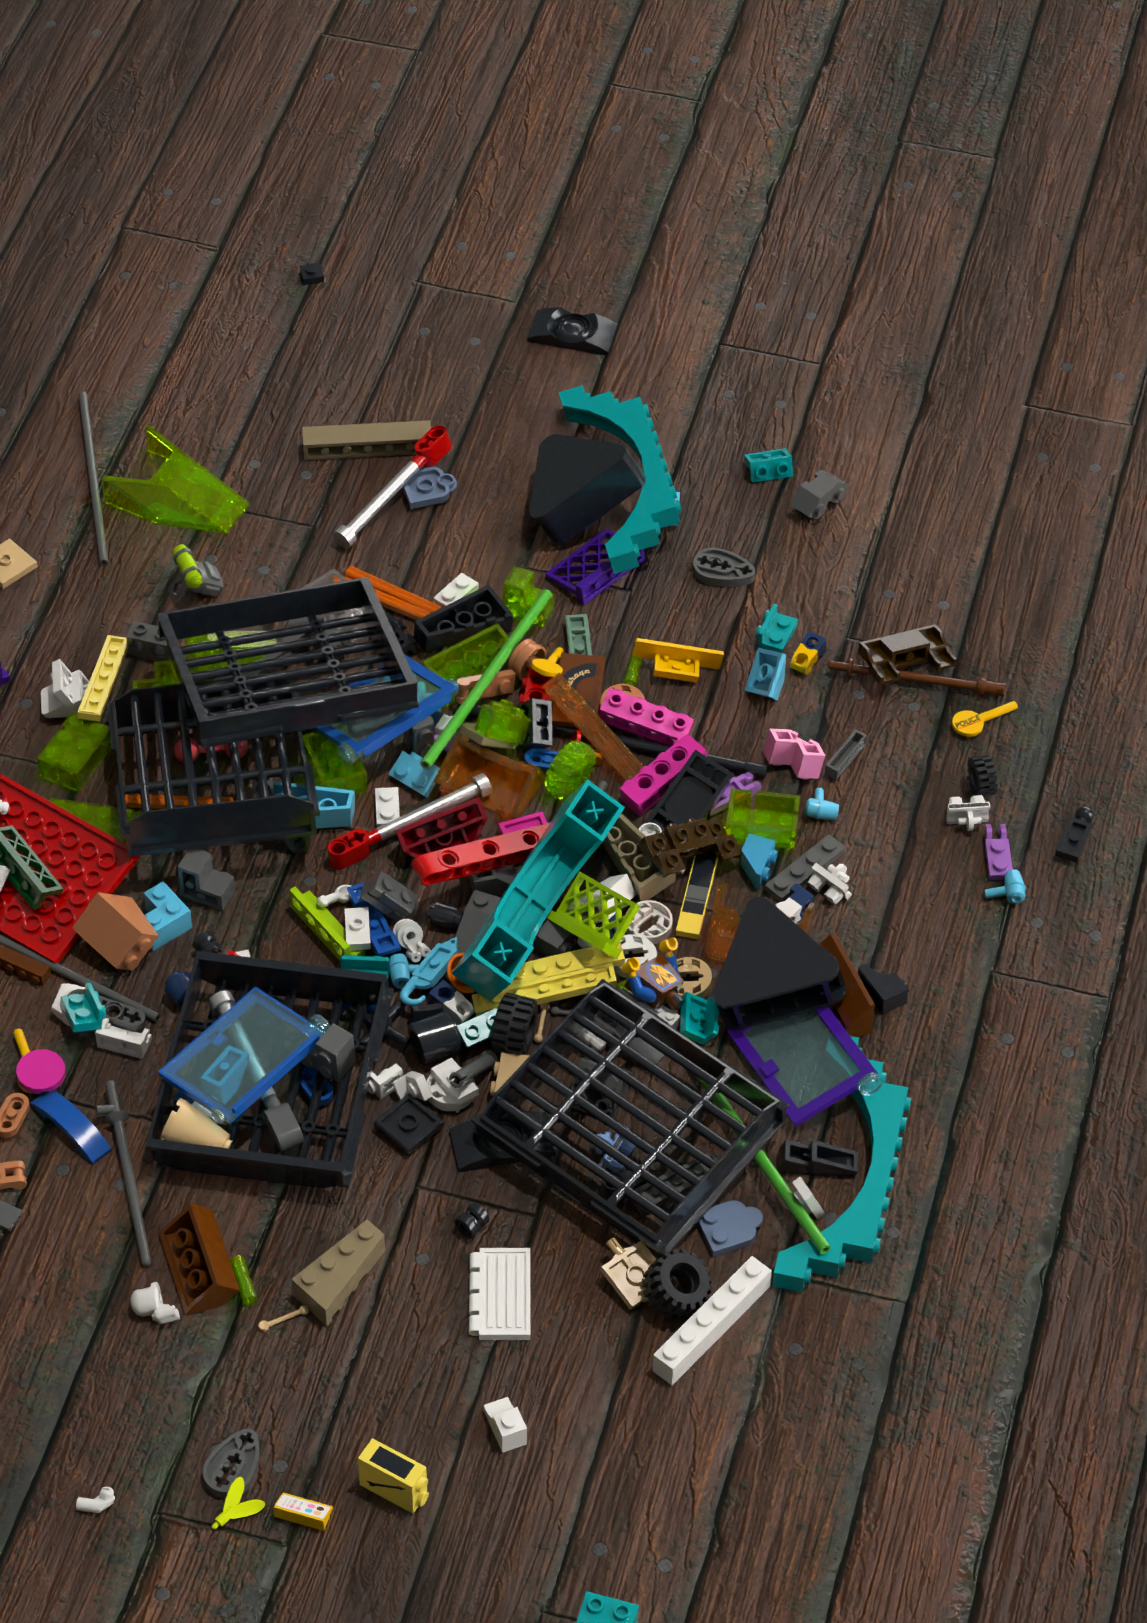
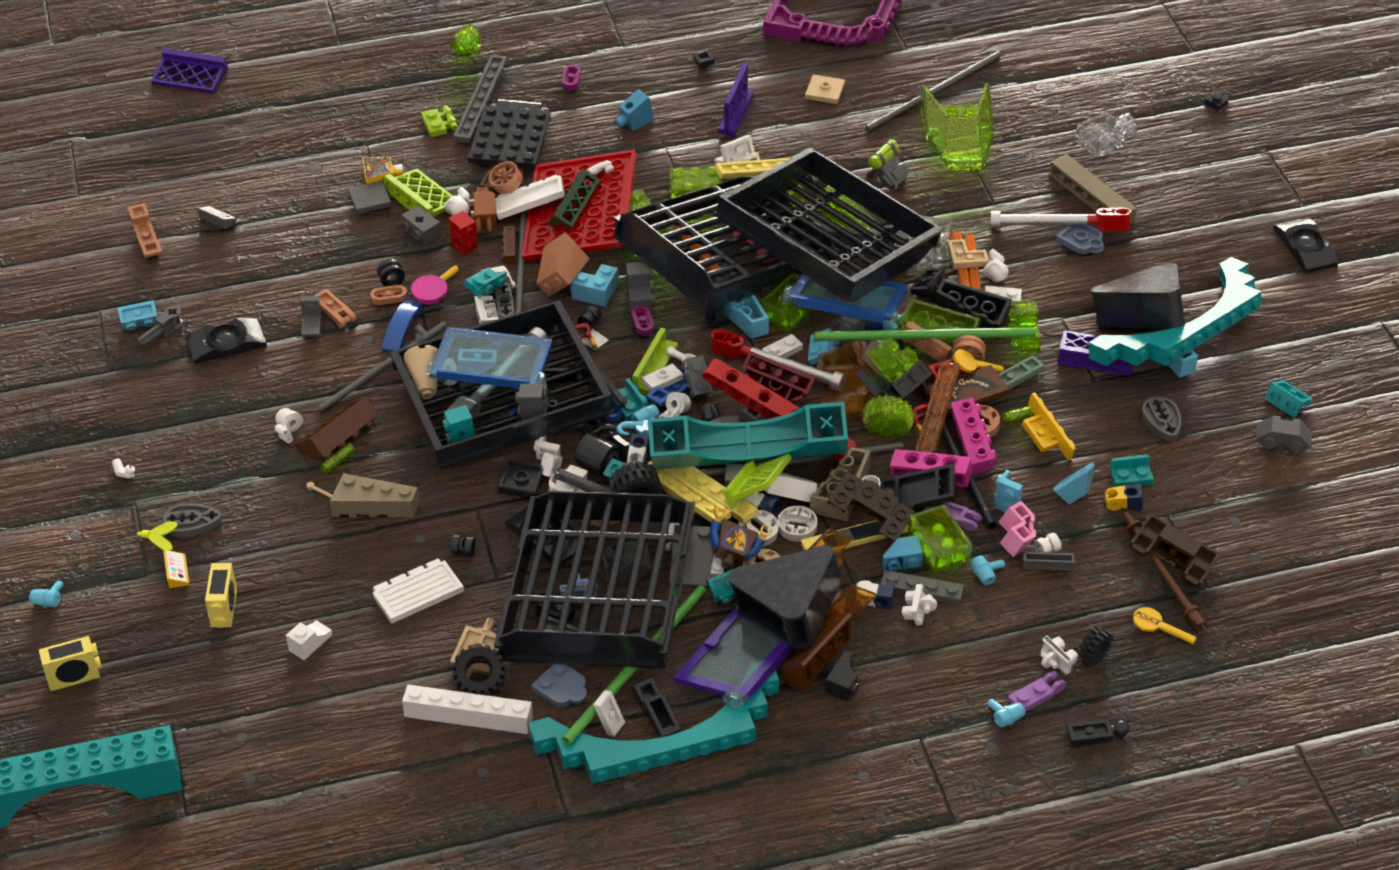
camera: 60 degrees right, 5 degrees down
(252, 905) = (642, 320): none -> magenta plate
(294, 381) = (1105, 133): none -> clear brick
(318, 1134) = (458, 424): none -> teal brick
(389, 586) = (963, 258): none -> tan tile
(417, 575) = (996, 269): none -> white piece
(528, 753) = (876, 384): none -> black plate
(746, 736) = (1007, 492): none -> medium azure bracket
(828, 741) = (1050, 544): none -> white wheel

